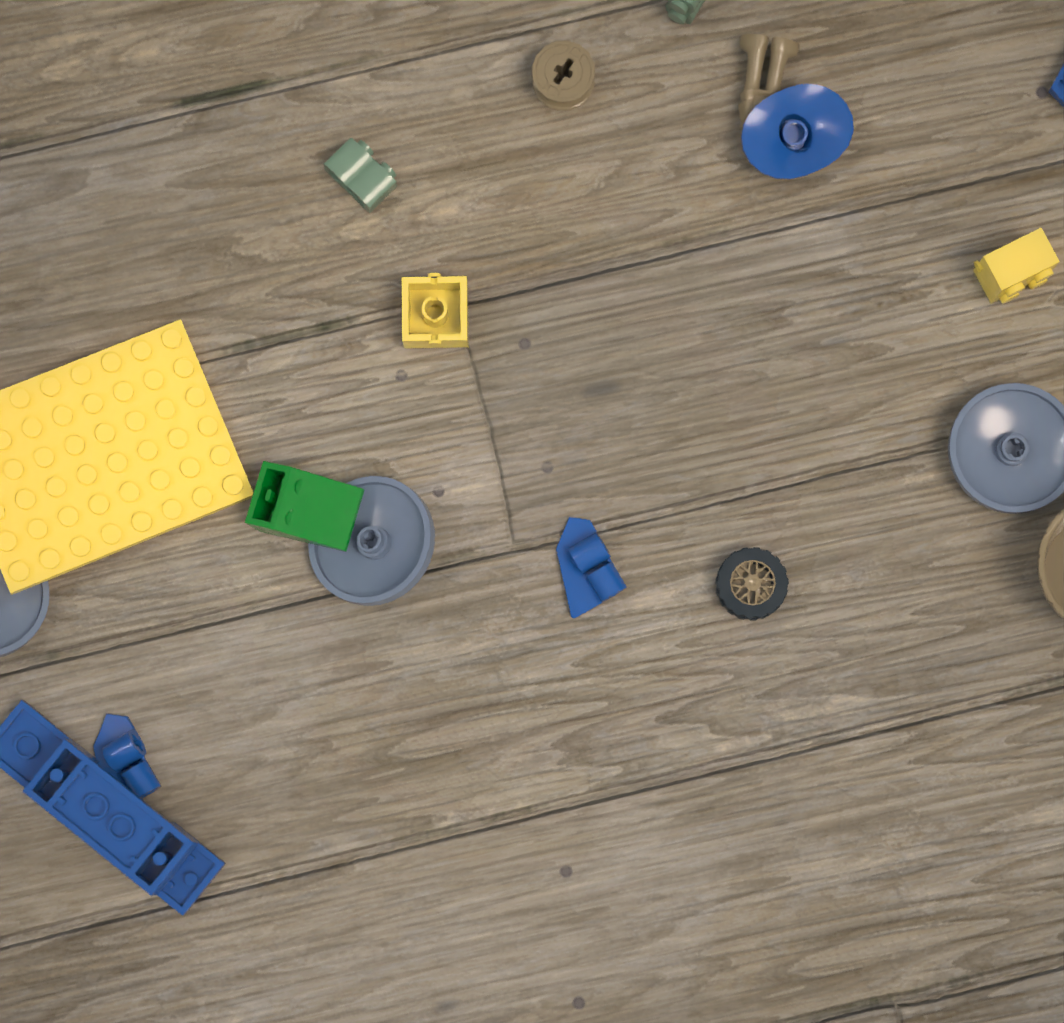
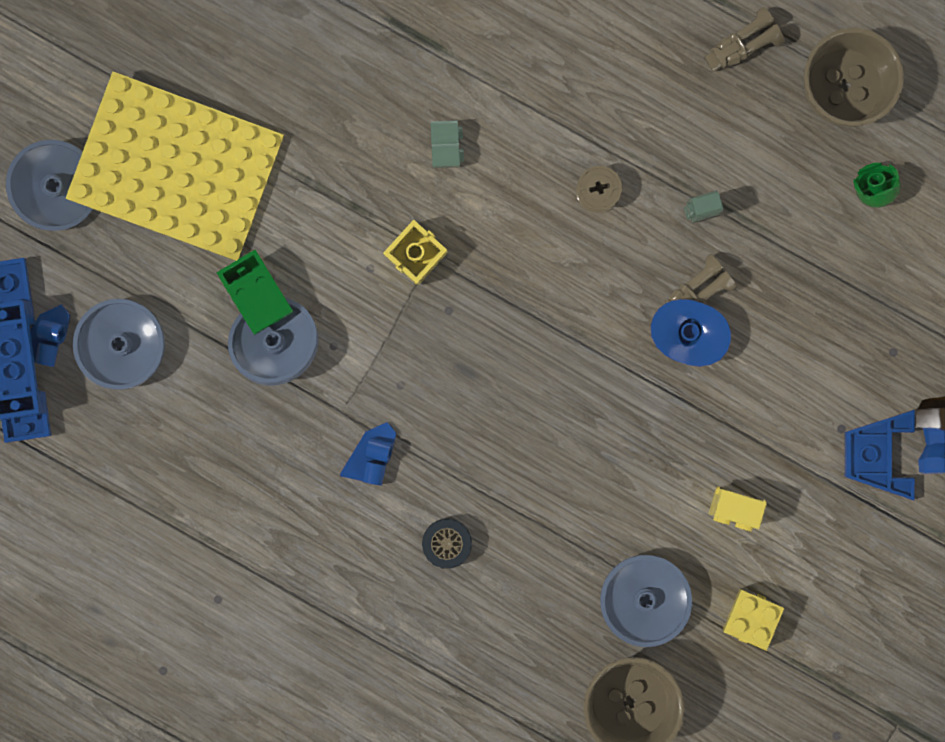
camera: 45 degrees right, 5 degrees up
(209, 695) = (119, 344): none -> sand blue dish

